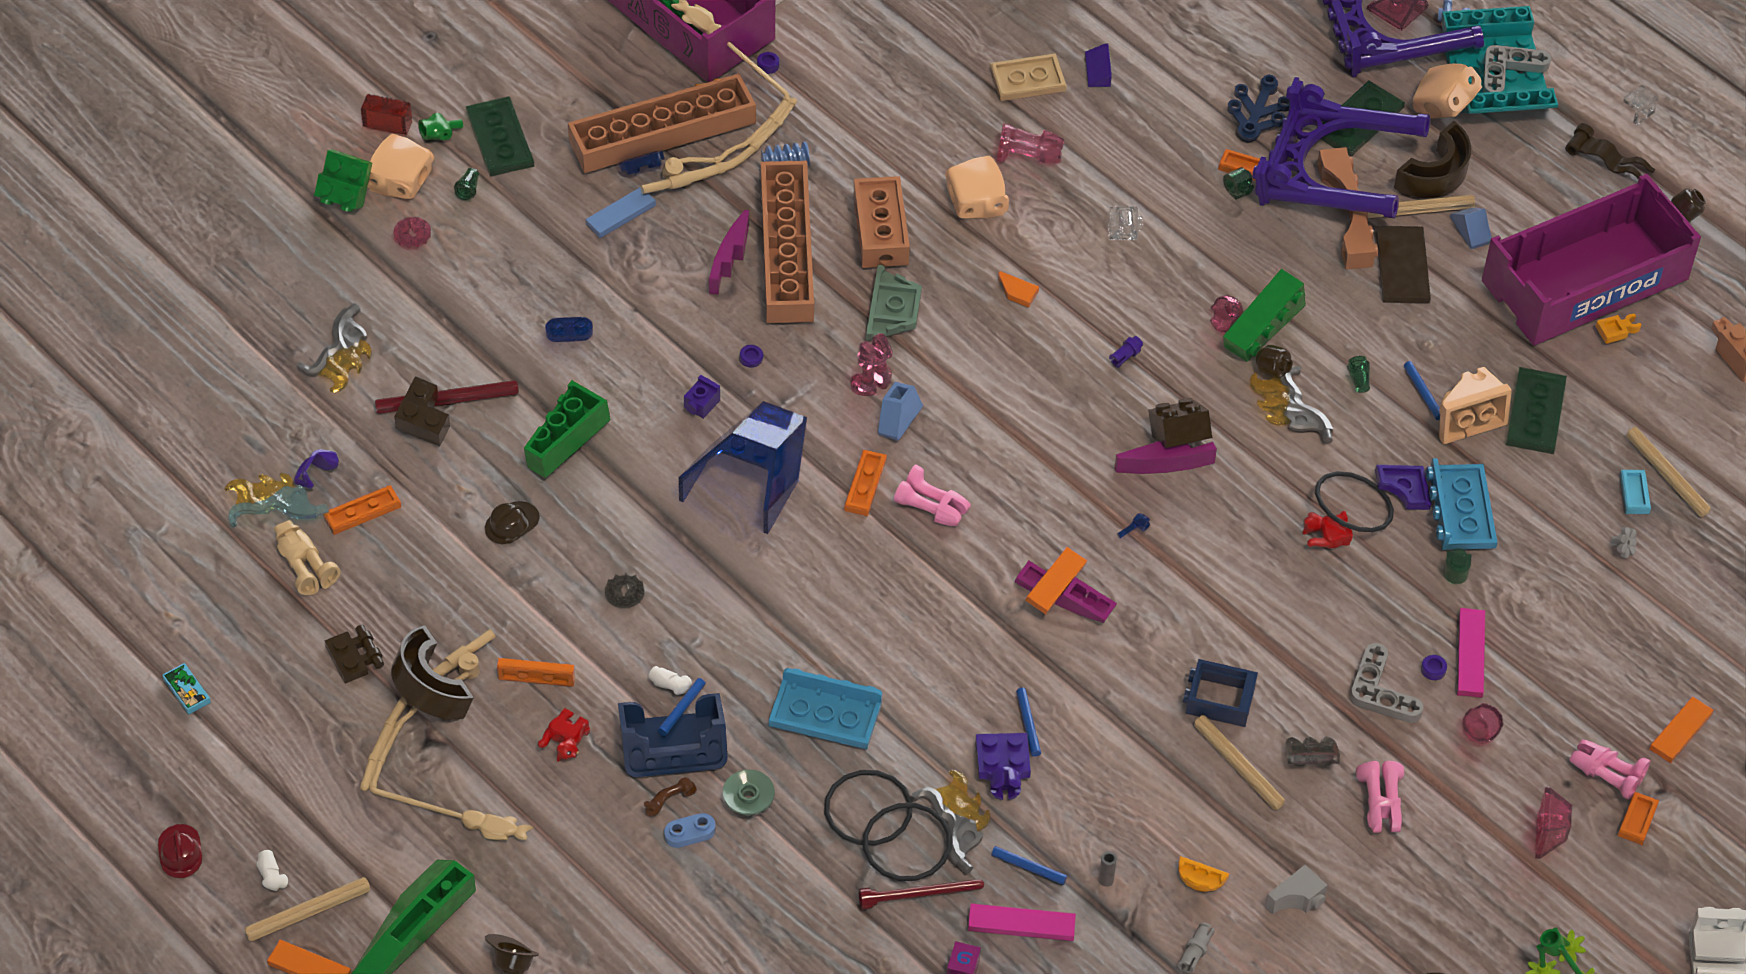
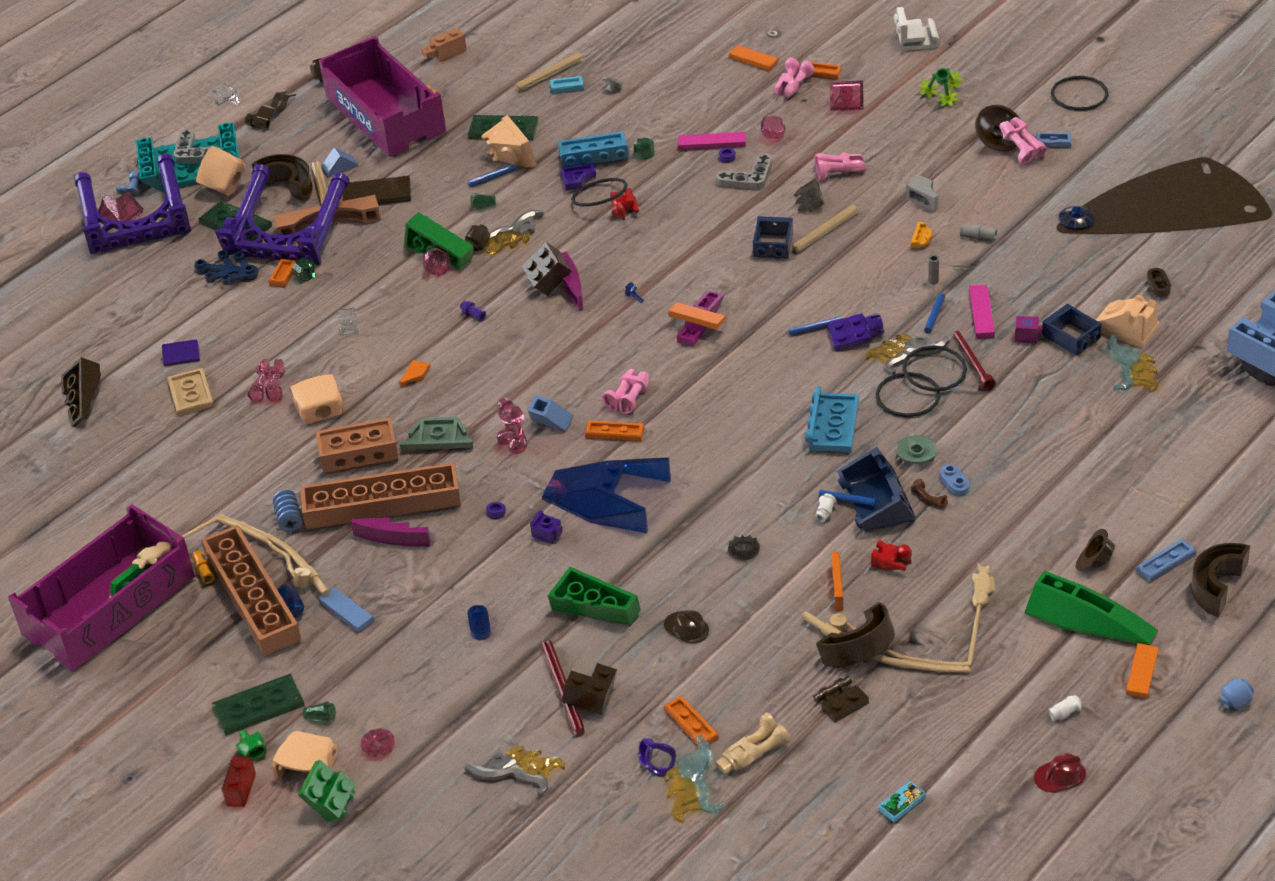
camera: 90 degrees left, 10 degrees down
(307, 909) = (1092, 681): tan axle -> none

